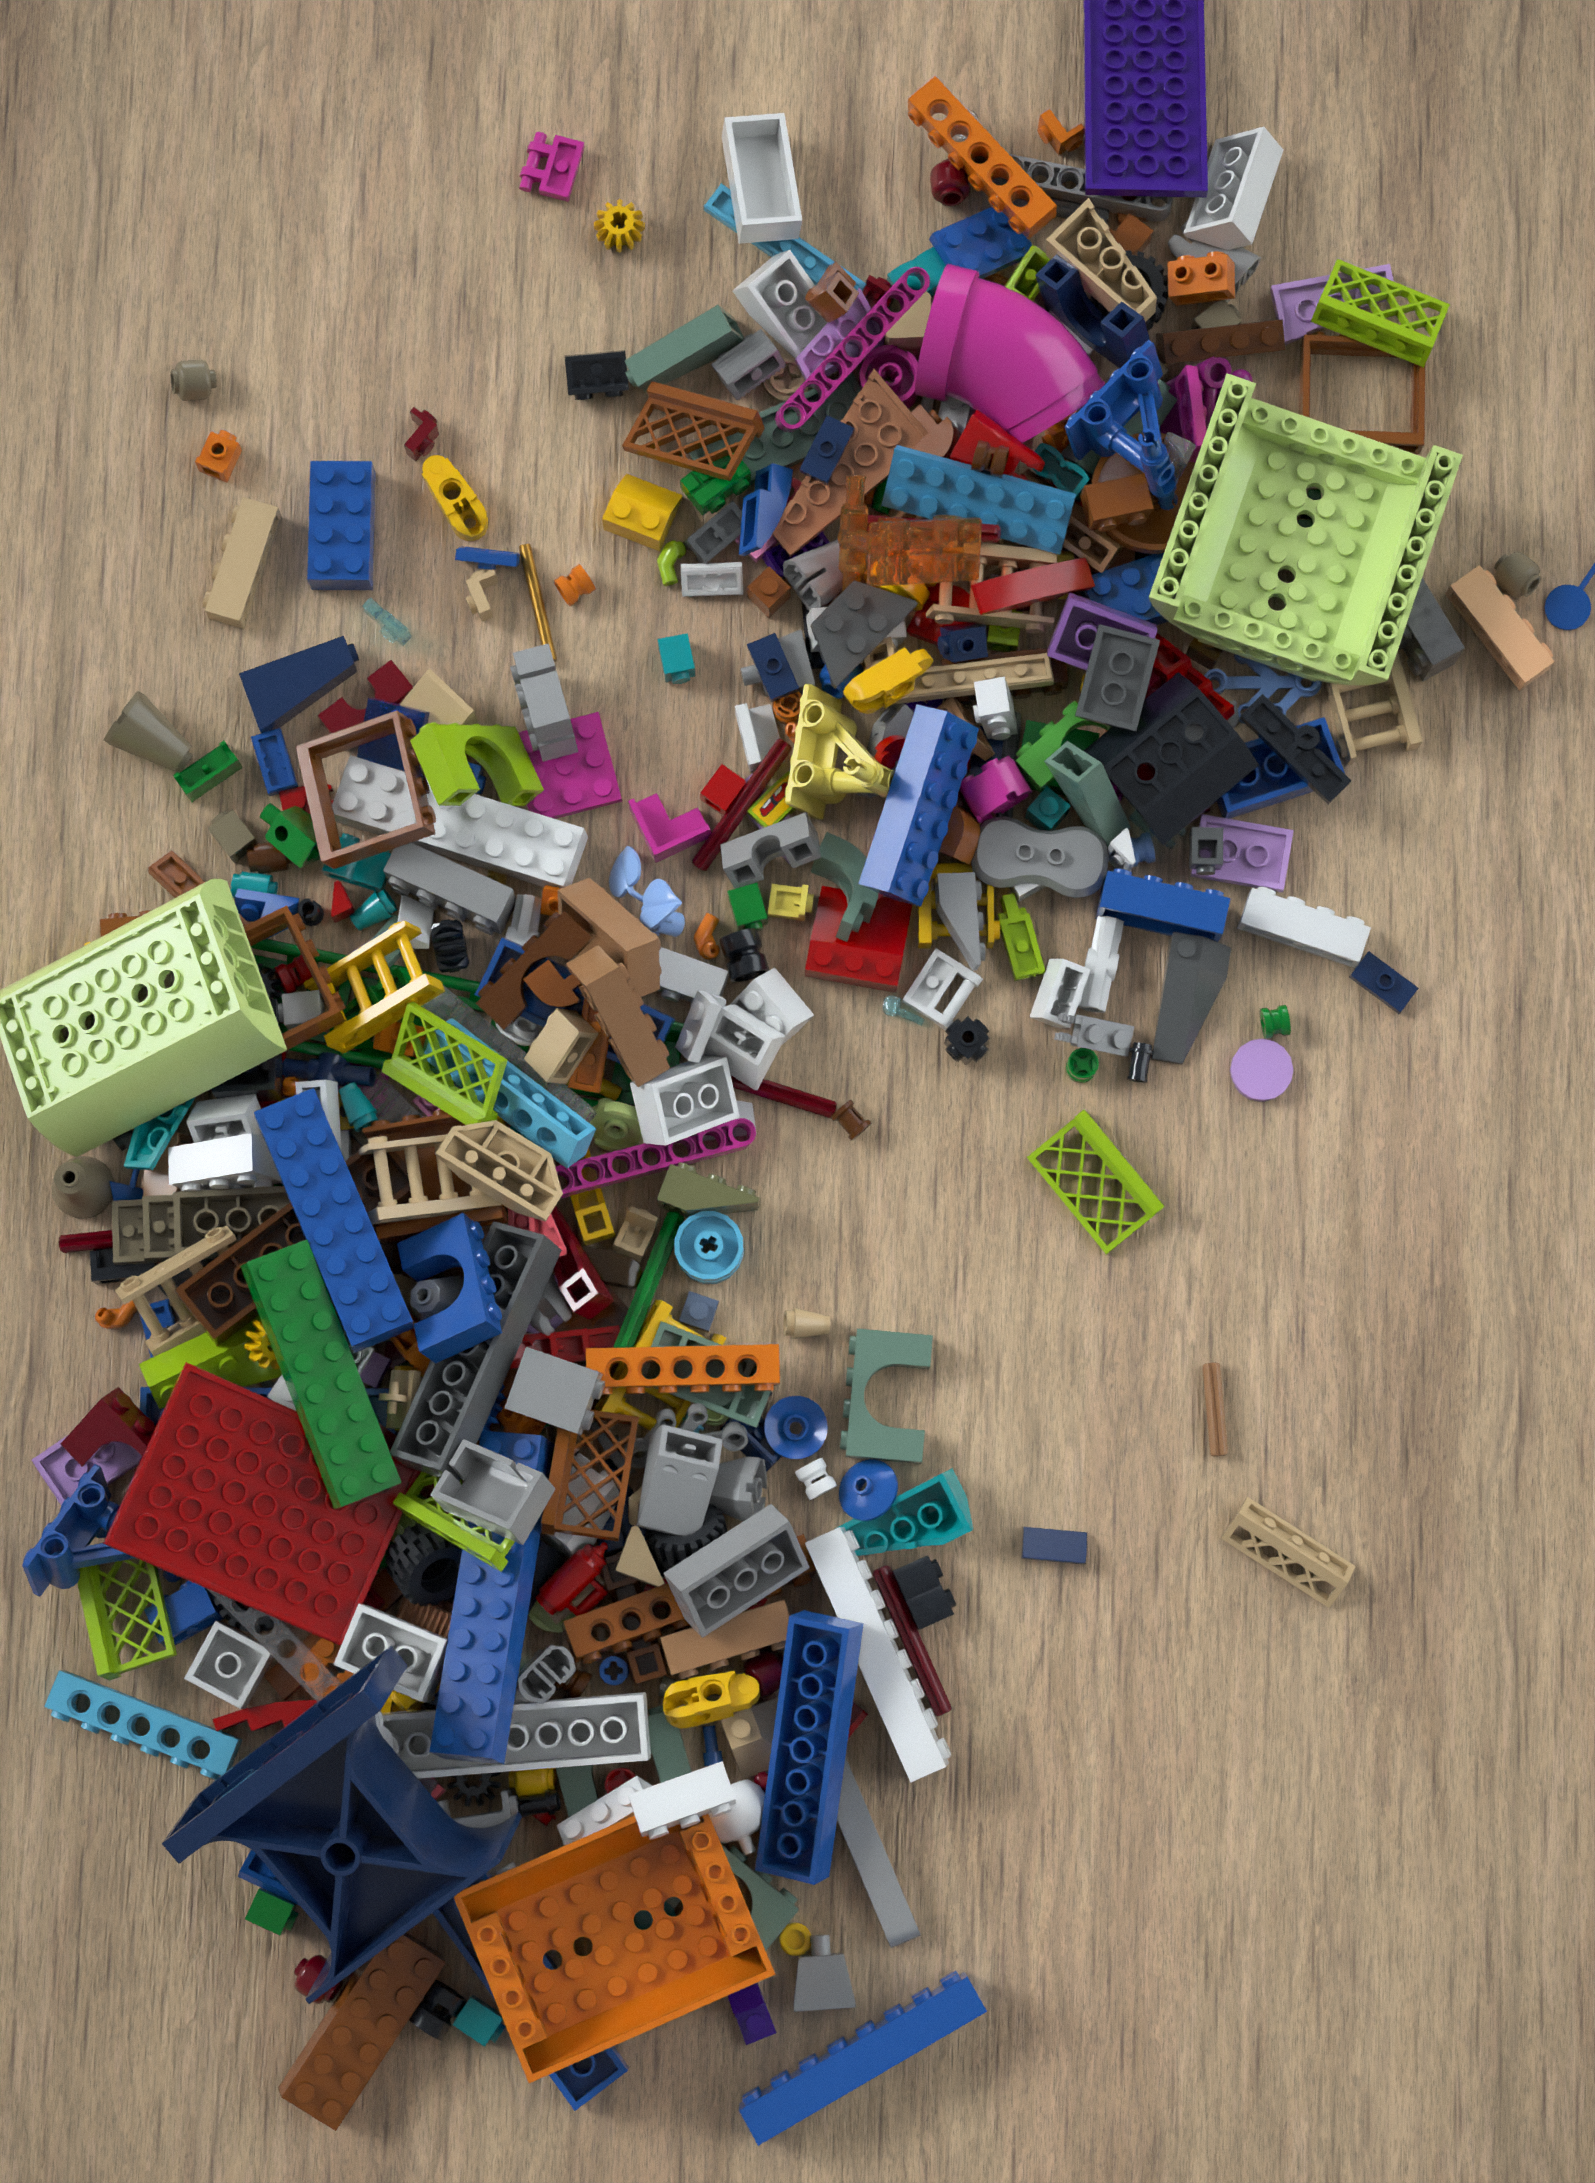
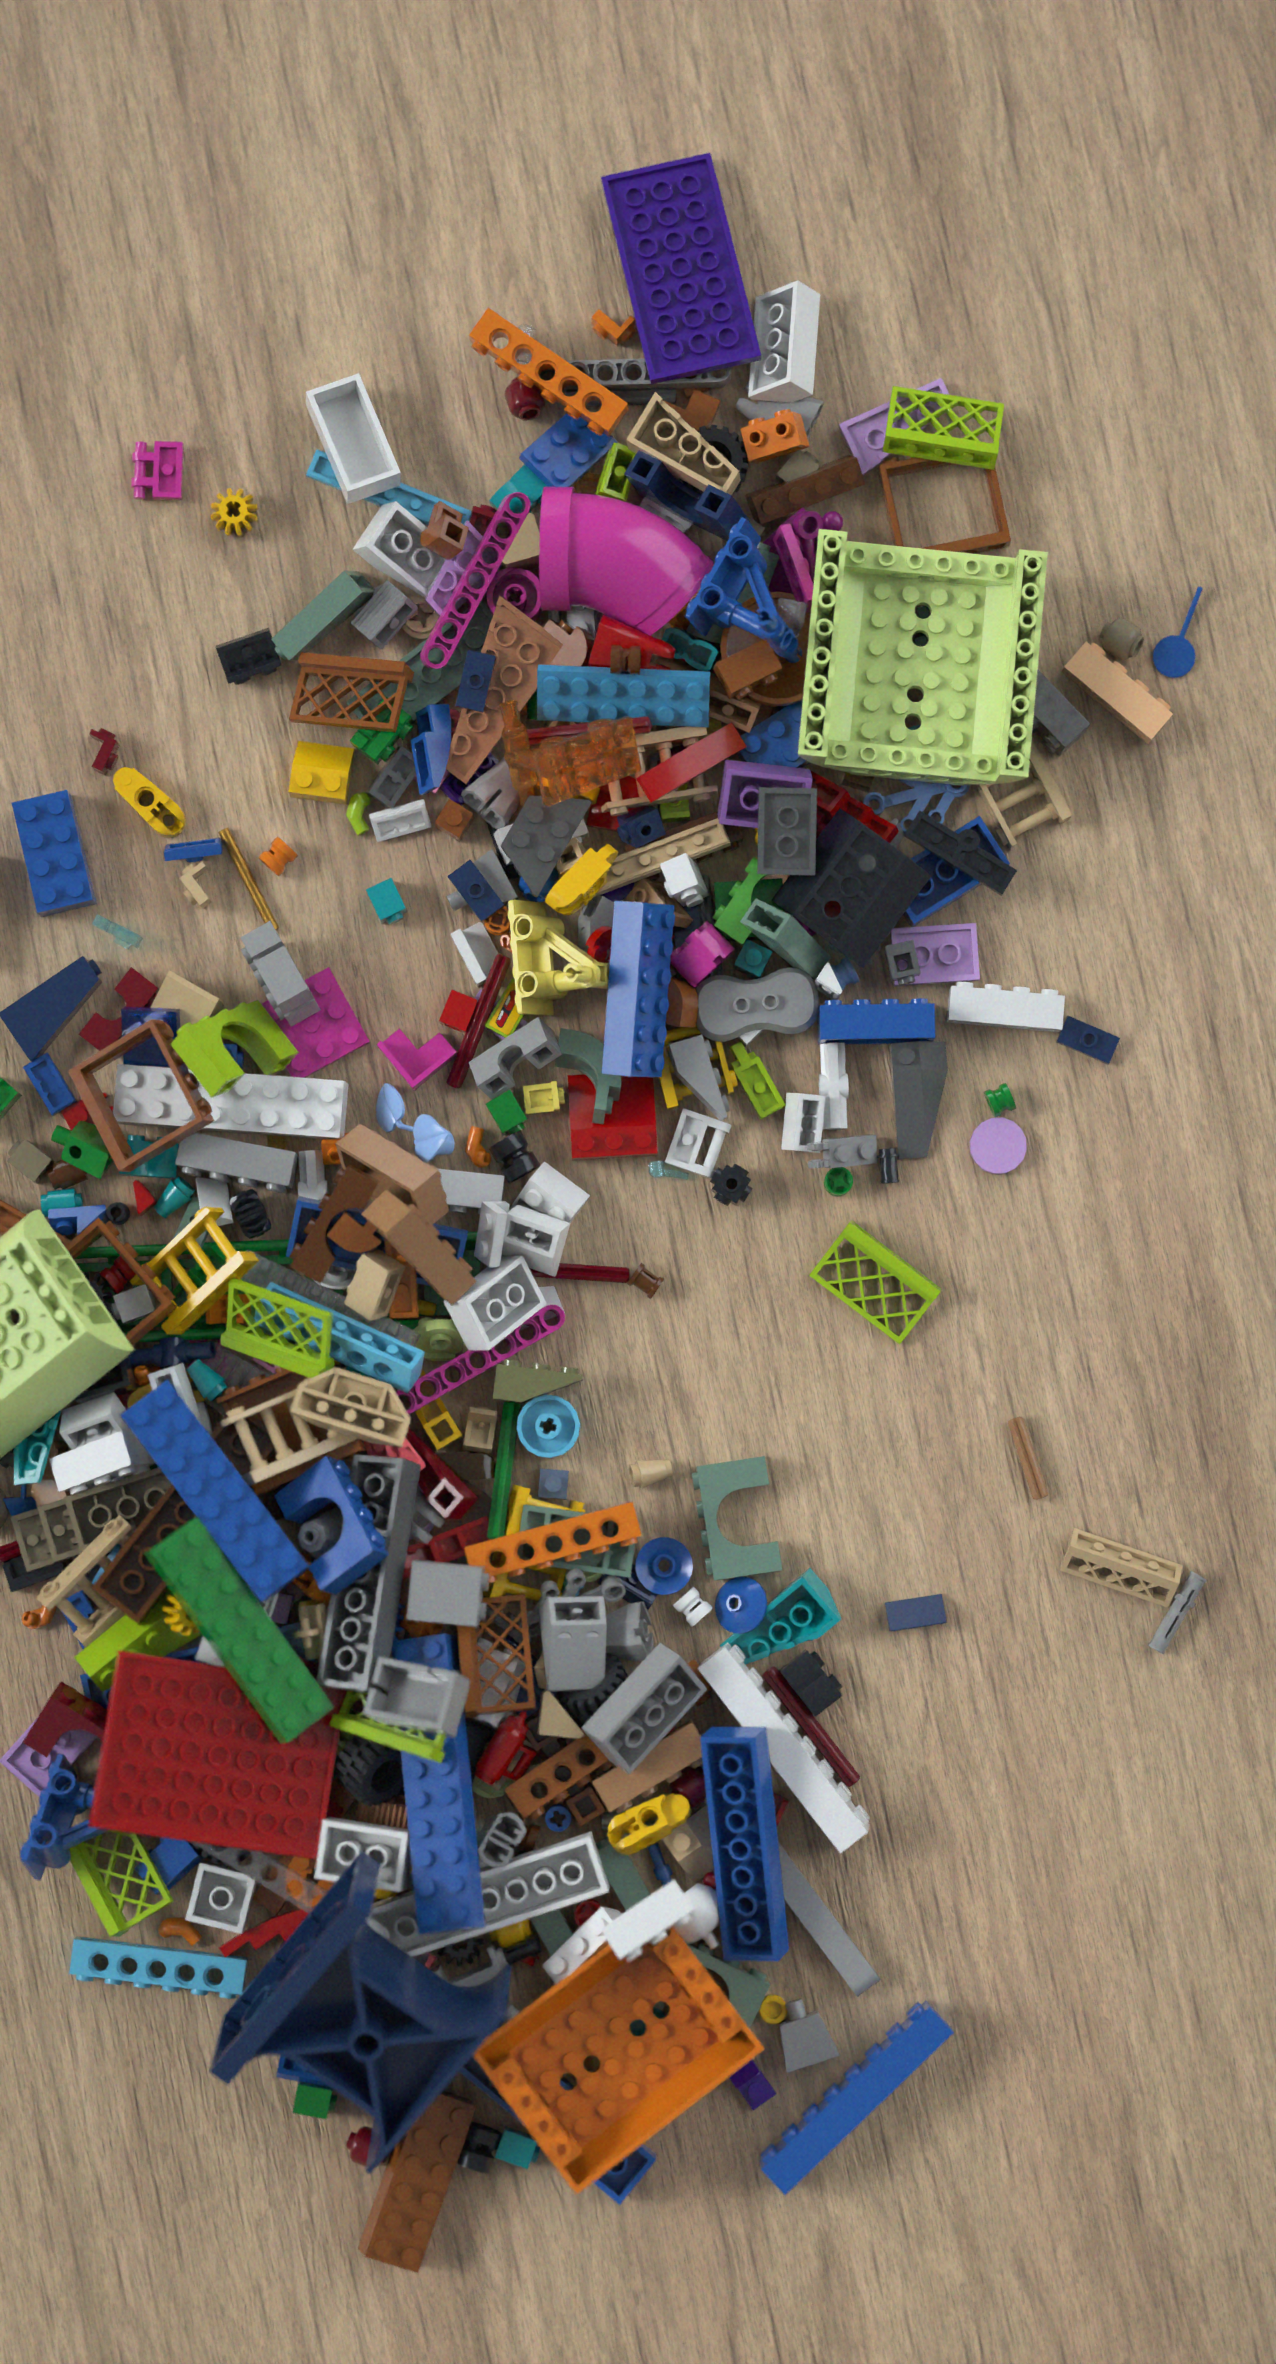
camera: 15 degrees left, 5 degrees up
(176, 1687) = (179, 1926): none -> orange arm
(1338, 1615) = (1177, 1612): none -> light grey pin

